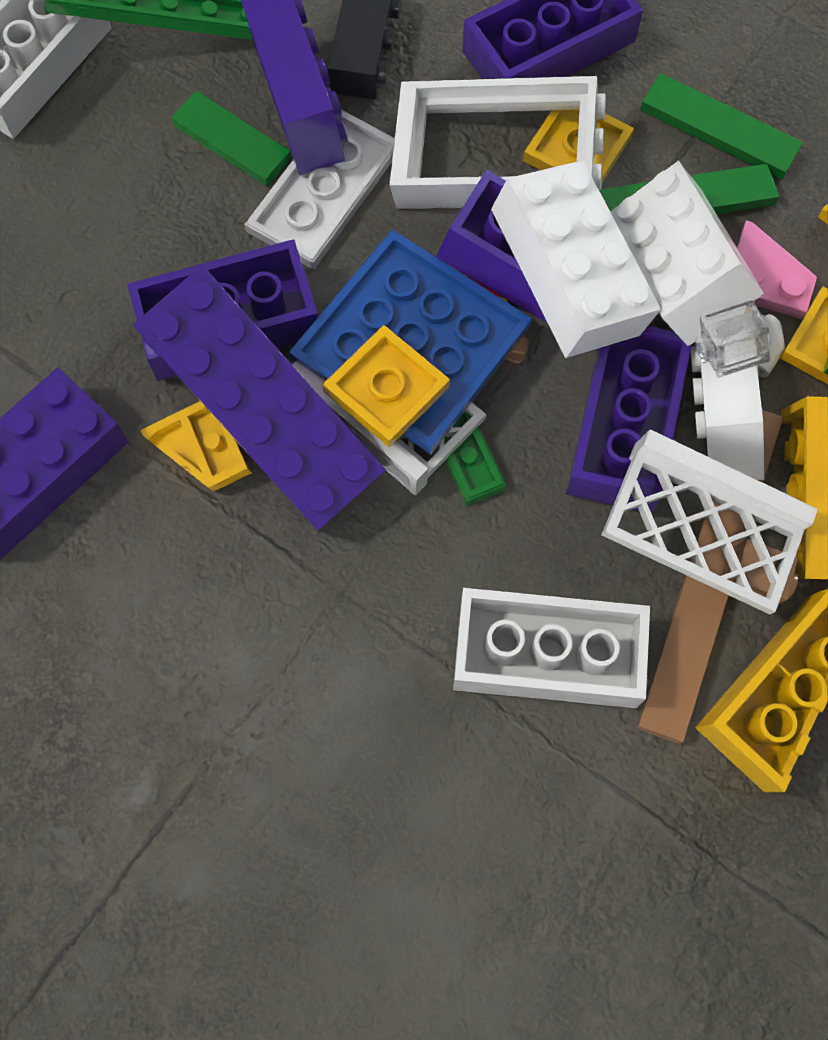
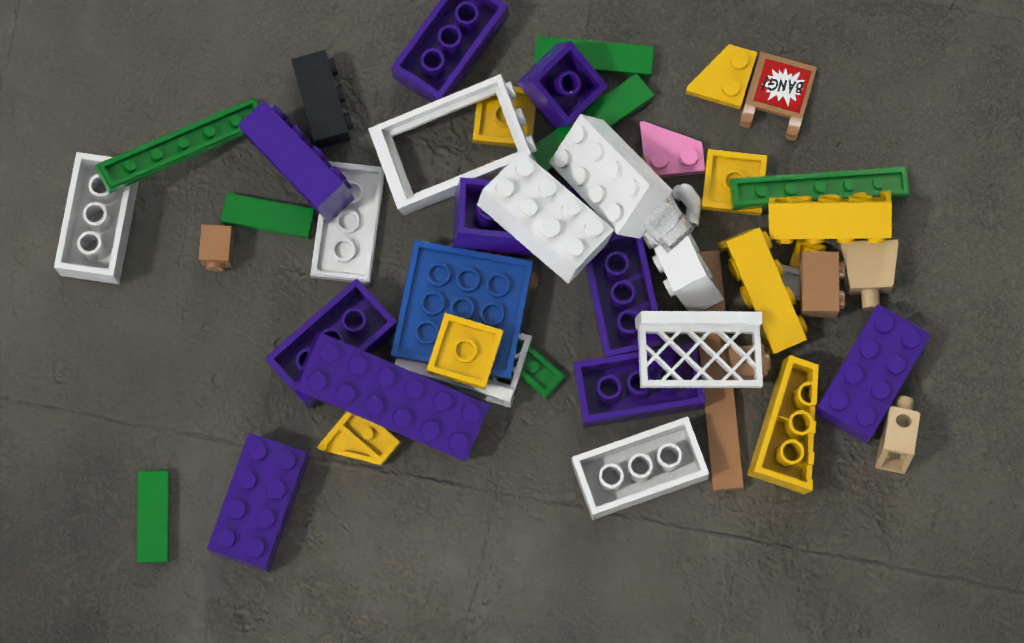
camera: 20 degrees left, 5 degrees up
(149, 142) = (216, 247): none -> medium nougat brick
(559, 536) = (612, 391): none -> dark purple brick
(668, 125) = (562, 84): none -> dark purple brick

